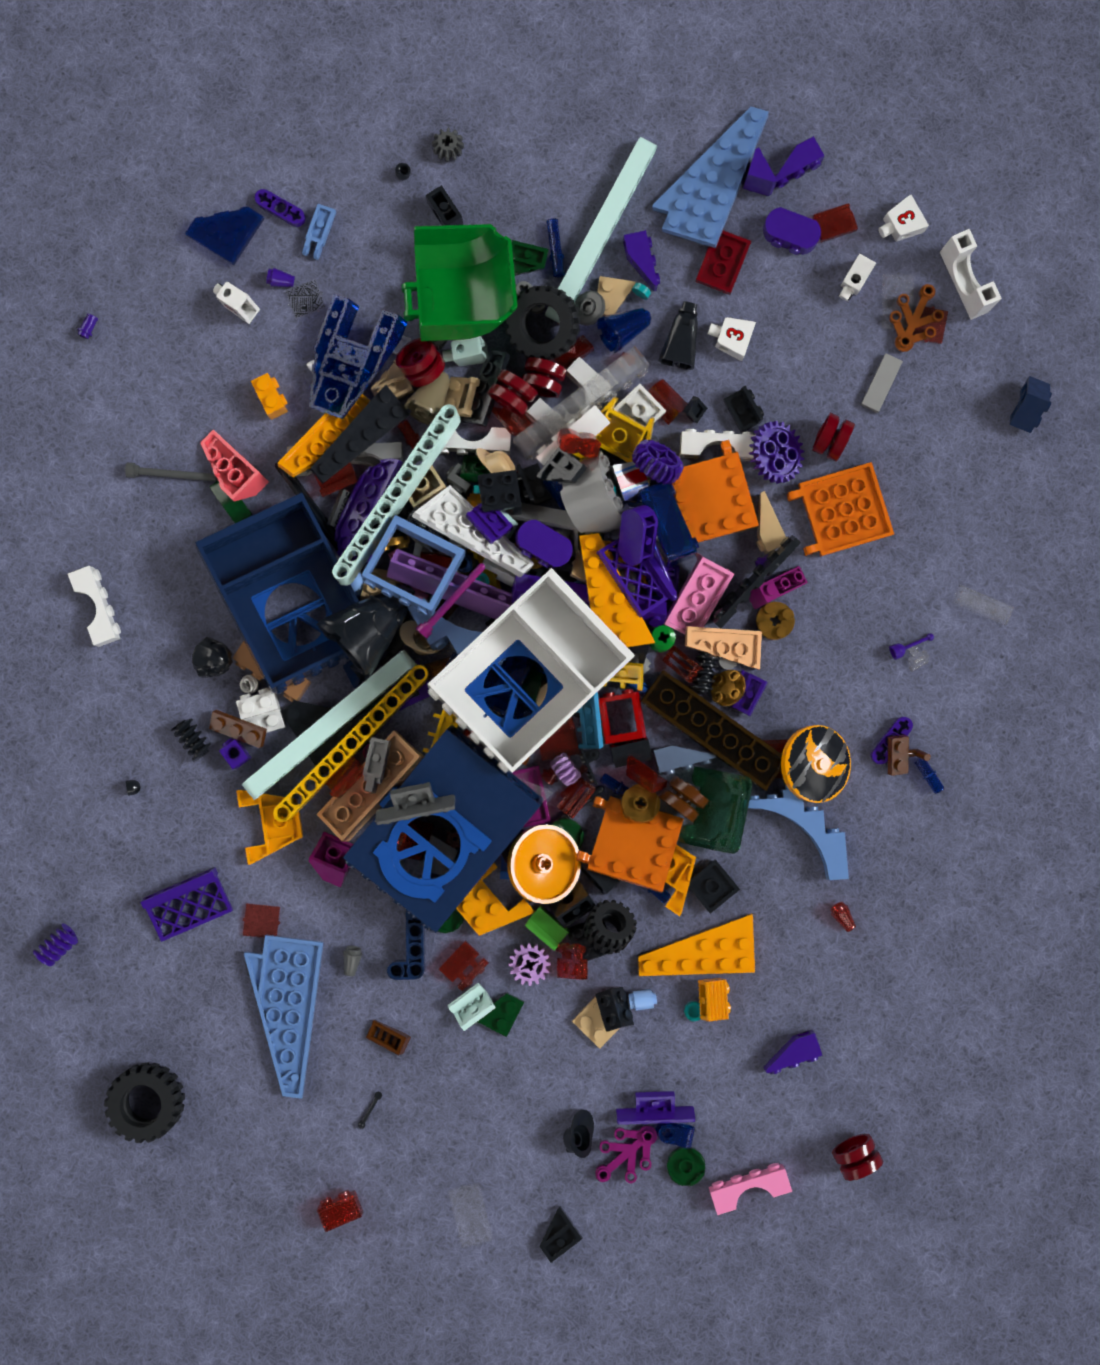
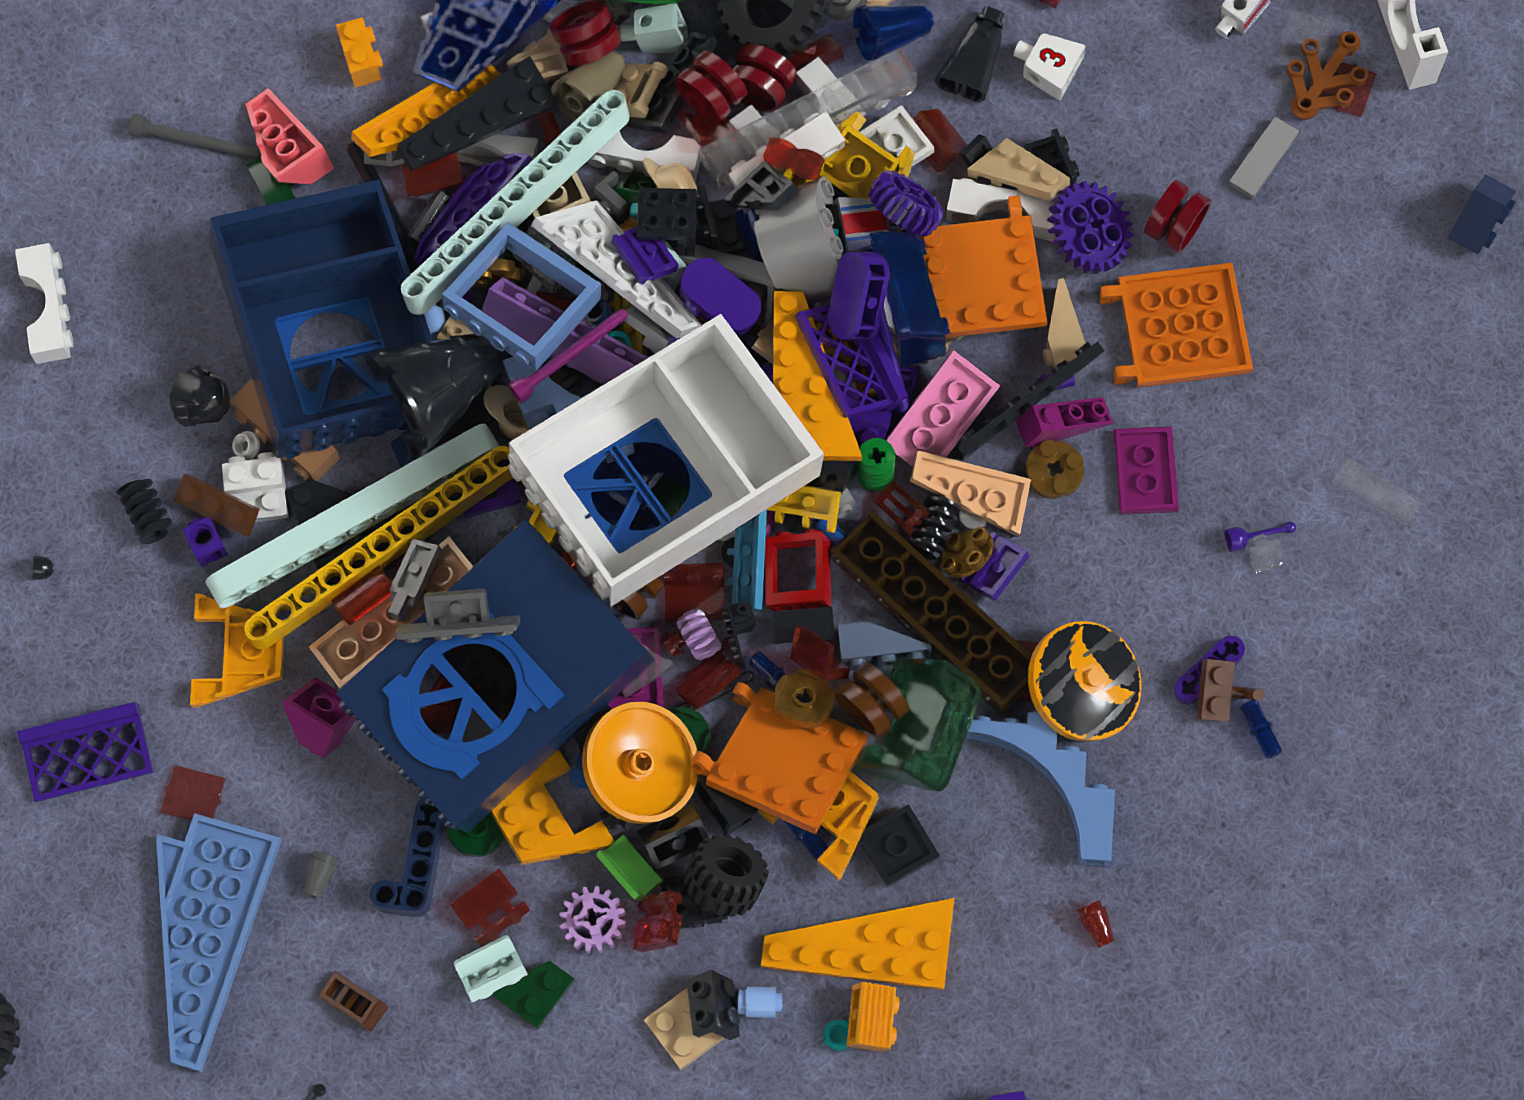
camera: 15 degrees right, 15 degrees down
(725, 418) = (1019, 168): none -> tan wing
(833, 612) = (1145, 470): none -> magenta tile

